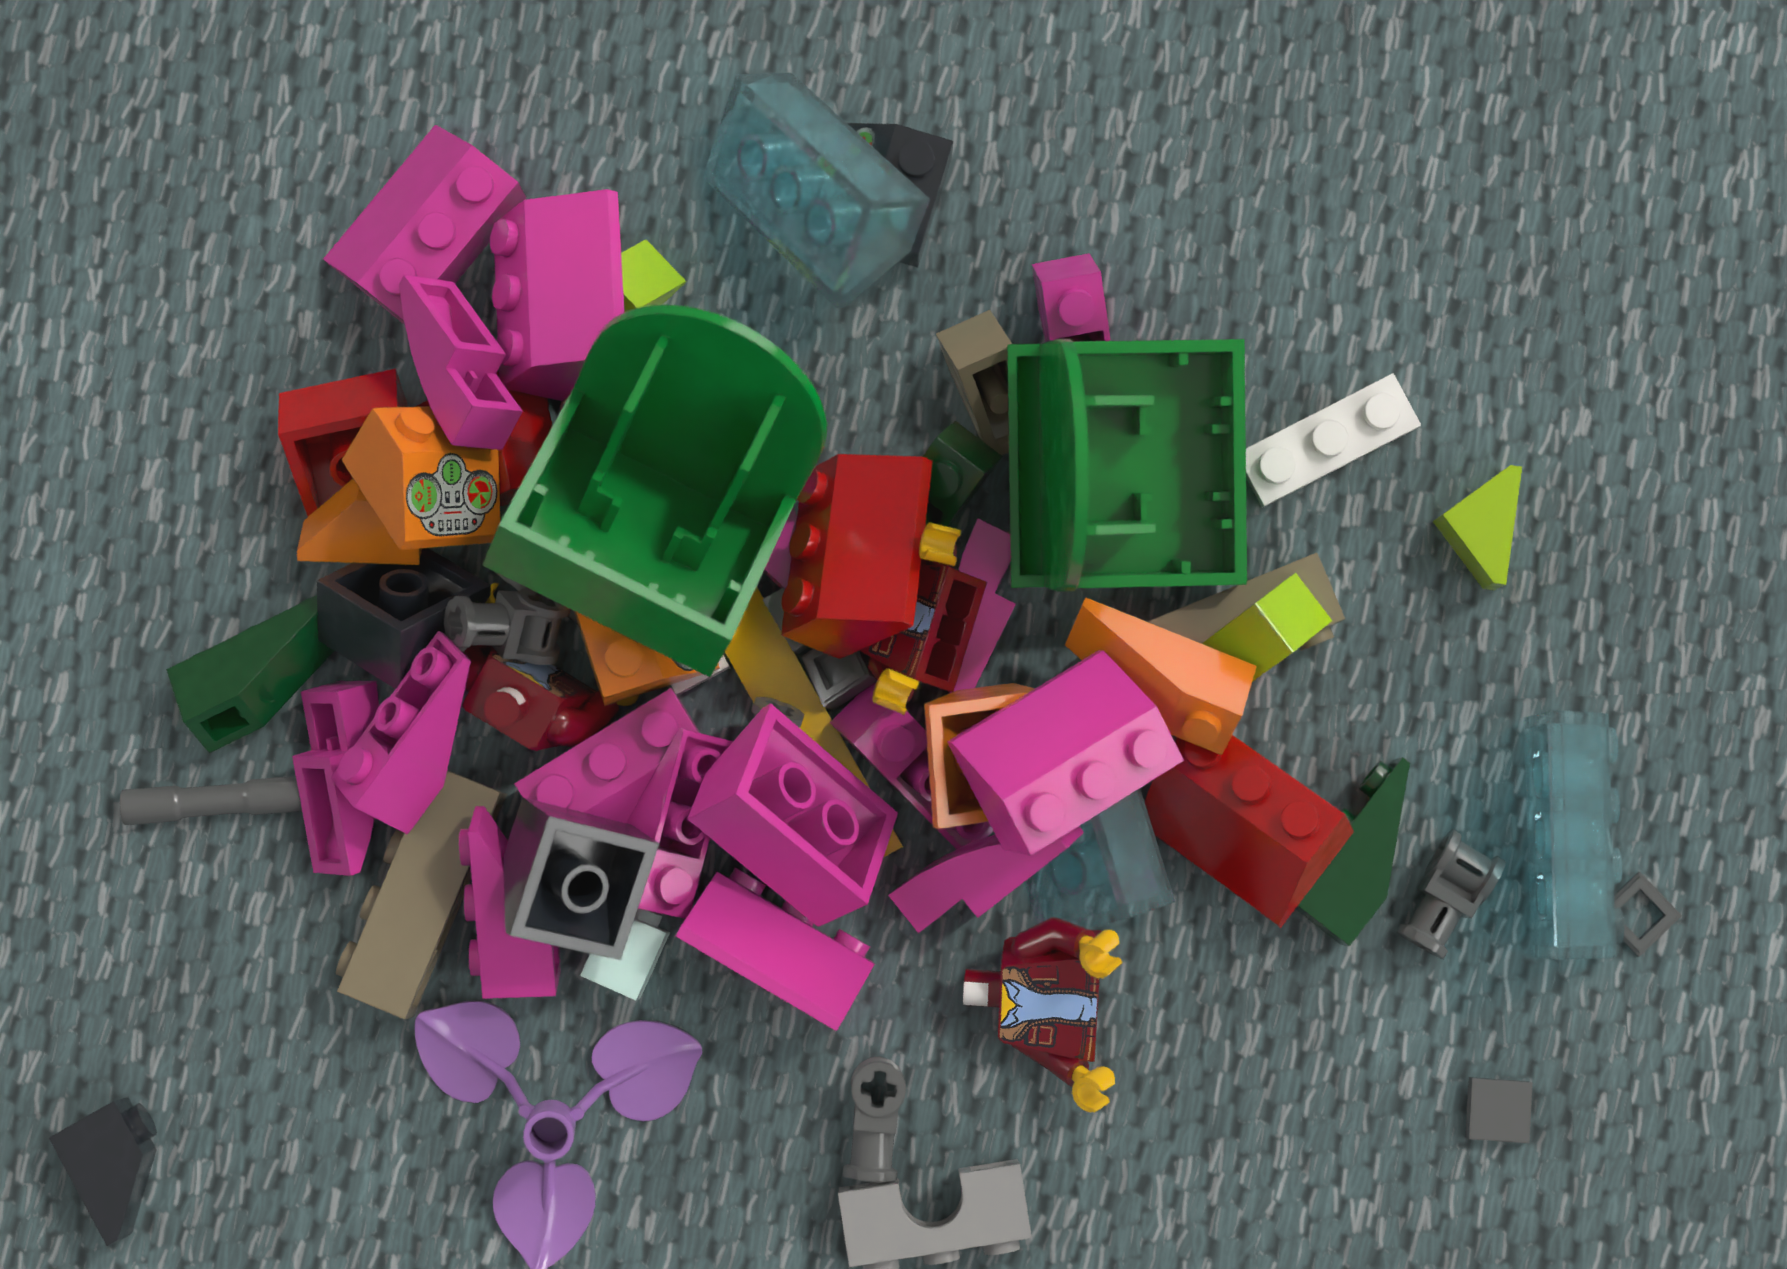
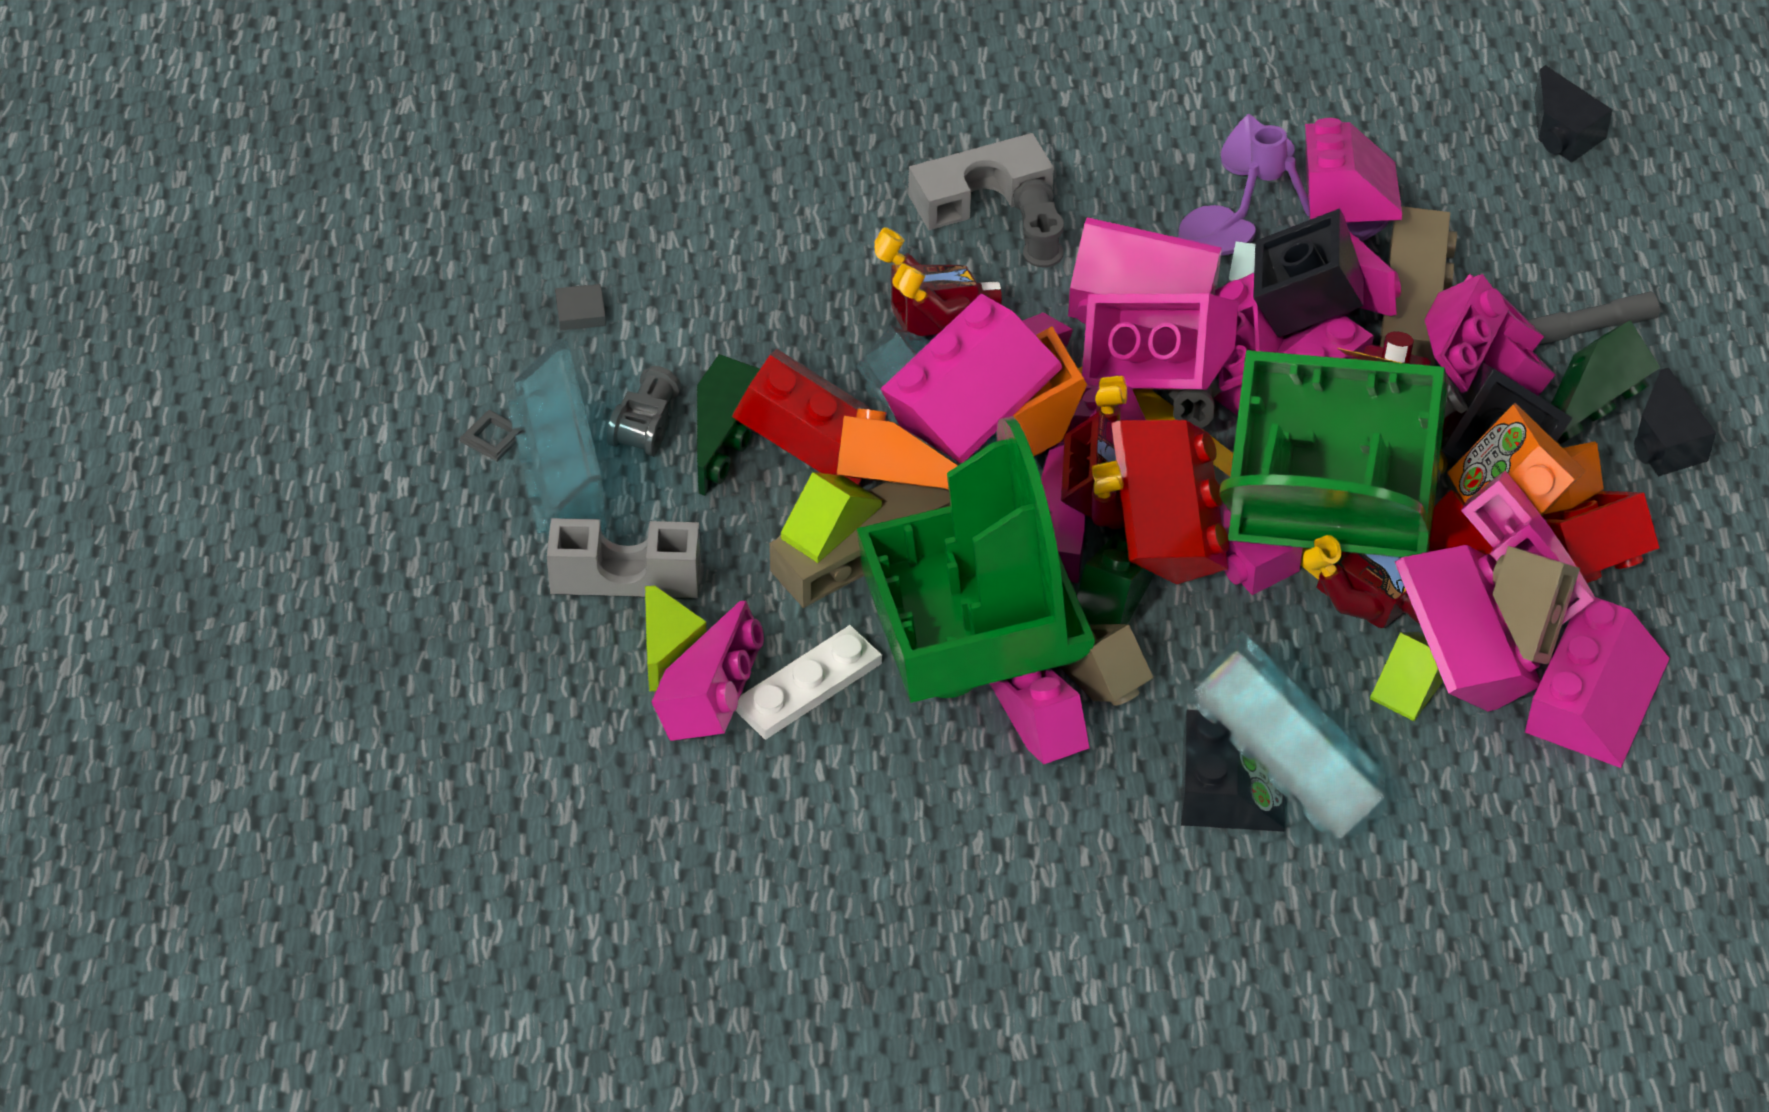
camera: 170 degrees right, 35 degrees down
(189, 586) = (1672, 428): none -> black slope
(447, 1080) = (1349, 174): none -> dark pink slope
(481, 270) = (1533, 599): none -> dark tan slope
(547, 639) = (1364, 356): none -> yellow sticker
(1450, 445) = (708, 678): none -> dark pink slope
(1524, 648) = (589, 564): none -> light grey arch

